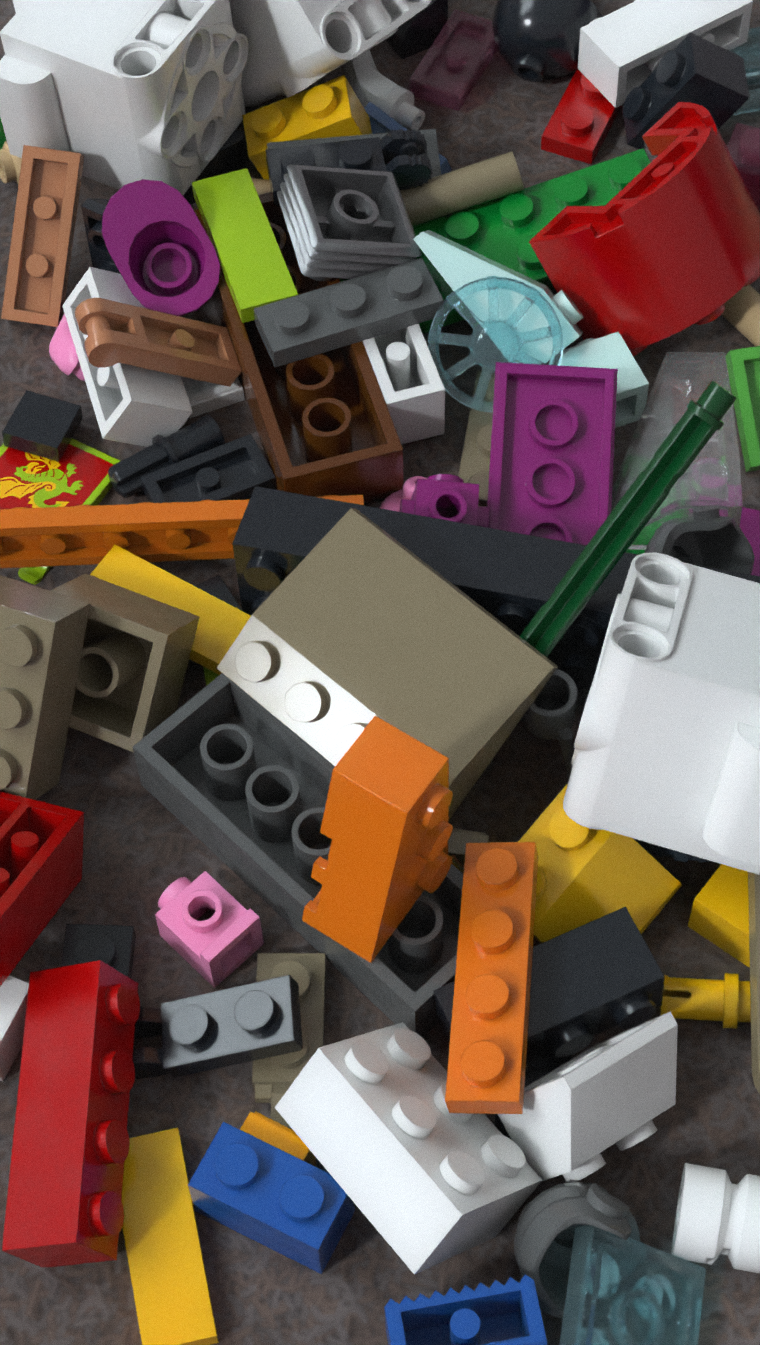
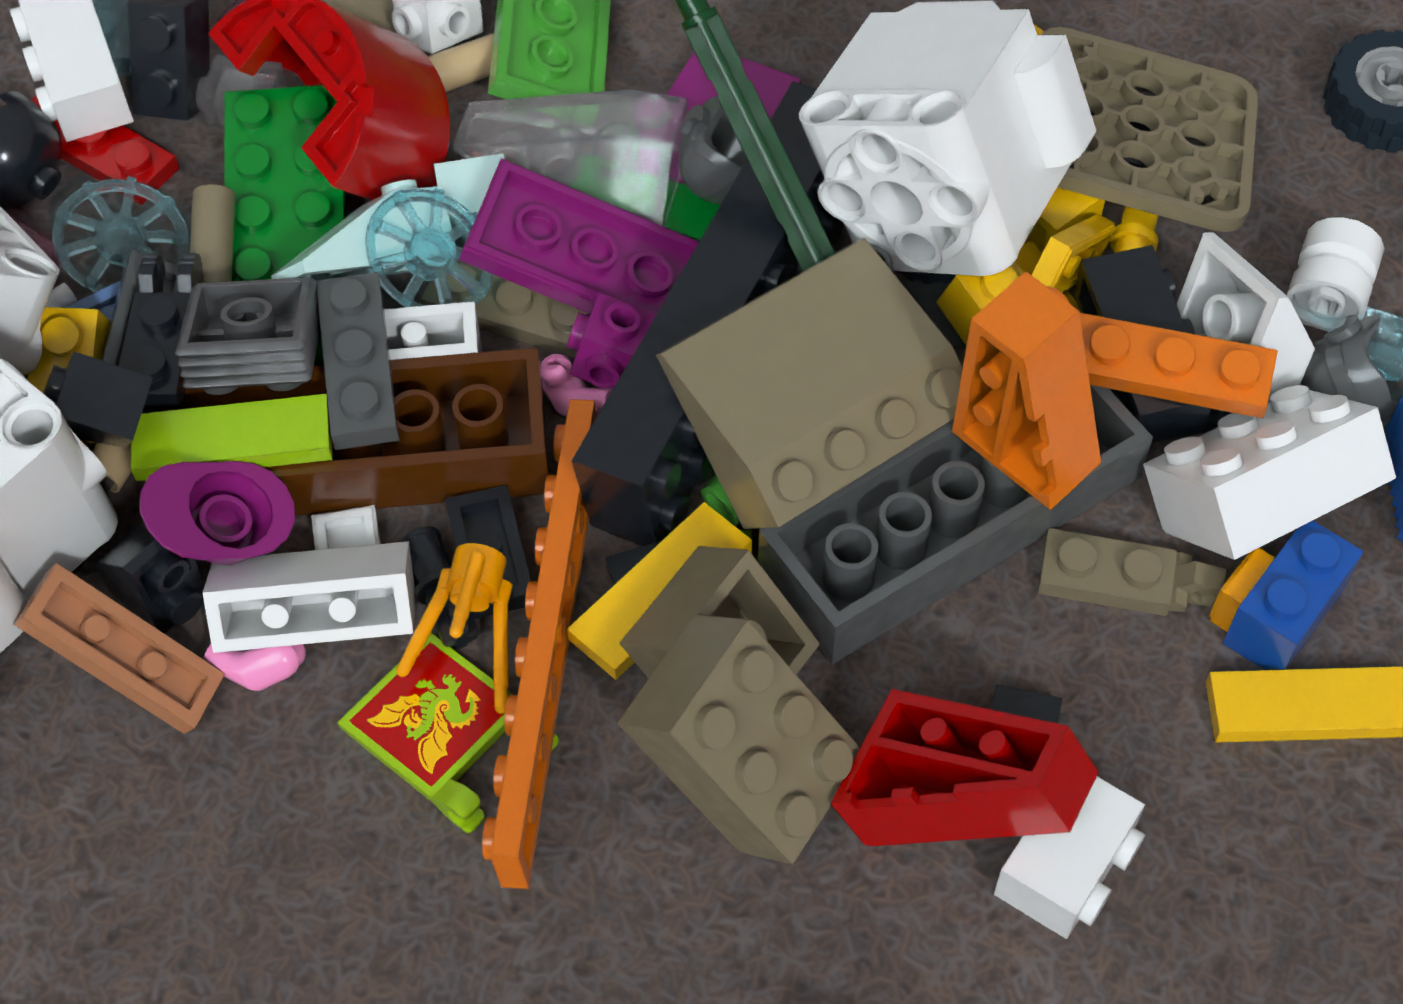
camera: 80 degrees left, 0 degrees up
(42, 425) = (364, 699): black tile -> none
(72, 1116) = (1209, 745): red brick -> none
(148, 462) = (472, 585): none -> light orange plant
(156, 341) = (330, 543): nougat plate -> none
(211, 945) = (1004, 638): bright pink brick -> none
(220, 1029) = (1123, 621): hinge -> none
(231, 125) = (99, 399): none -> black slope
(489, 134) = (116, 232): none -> clear light blue wheel
(660, 917) = (1065, 250): none -> yellow tile

